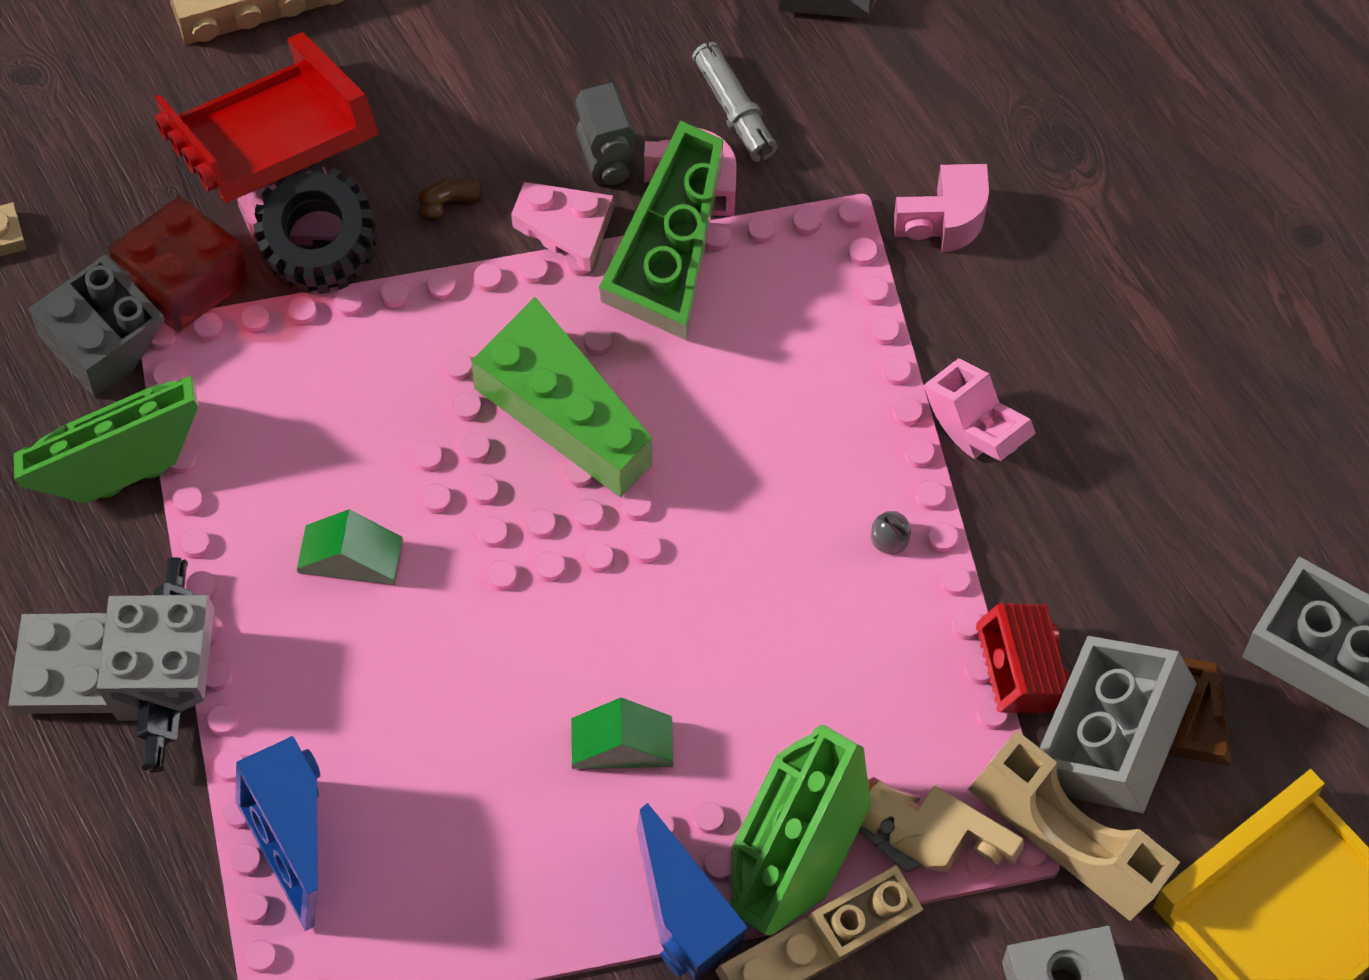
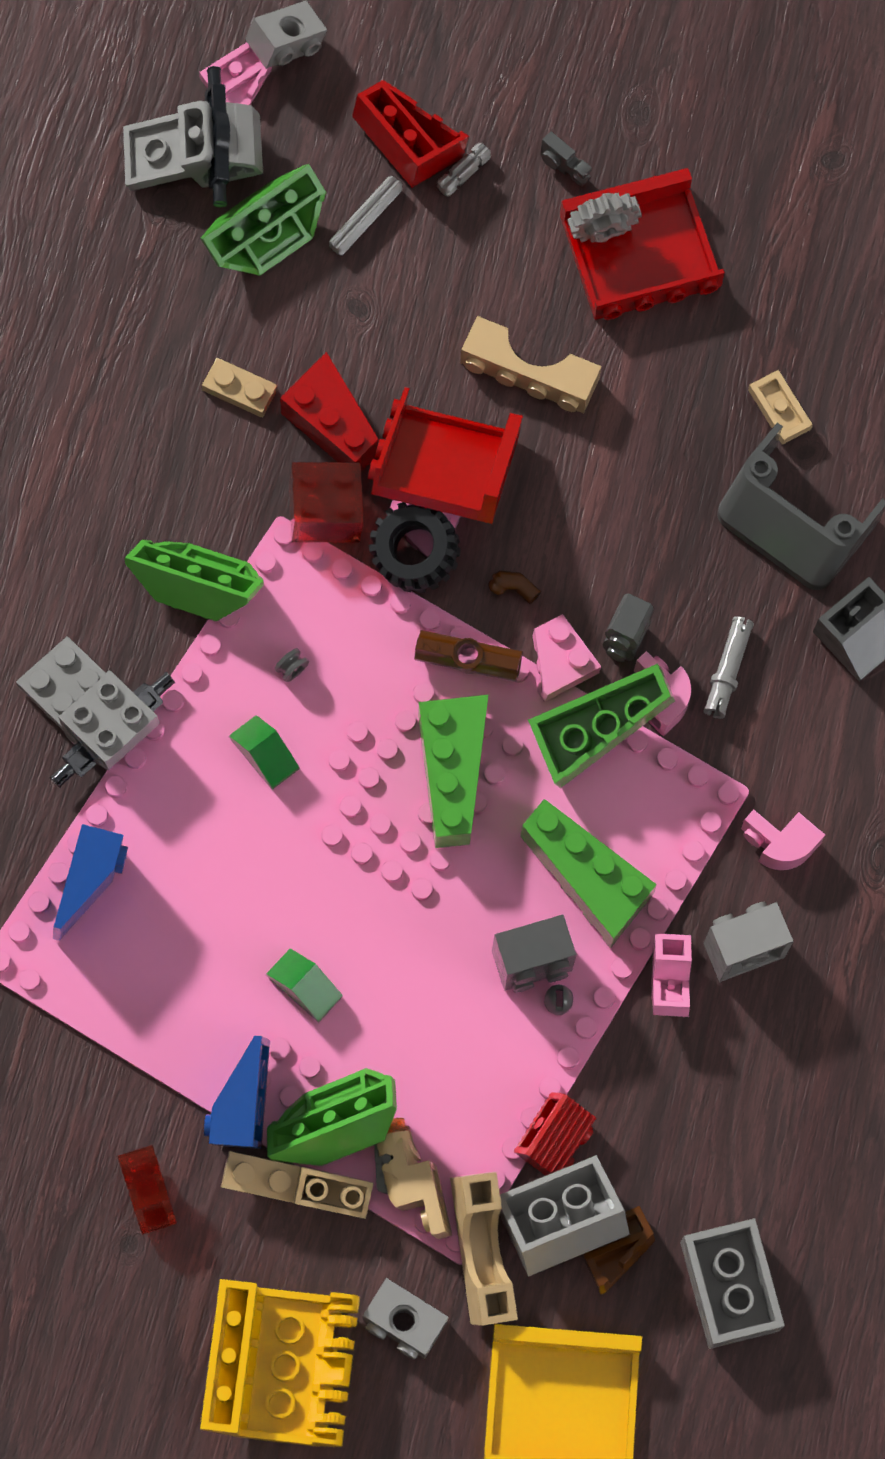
camera: 40 degrees right, 10 degrees up
(97, 325) = (252, 500): dark grey slope -> none
(99, 182) = (329, 414): none -> red wedge
(296, 445) = (291, 665): none -> dark grey bush
(498, 272) = (445, 652): none -> reddish brown piece
(797, 384) = (589, 872): none -> bright green wedge
(829, 500) = (534, 954): none -> dark grey brick
(1016, 316) = (747, 940): none -> light grey brick

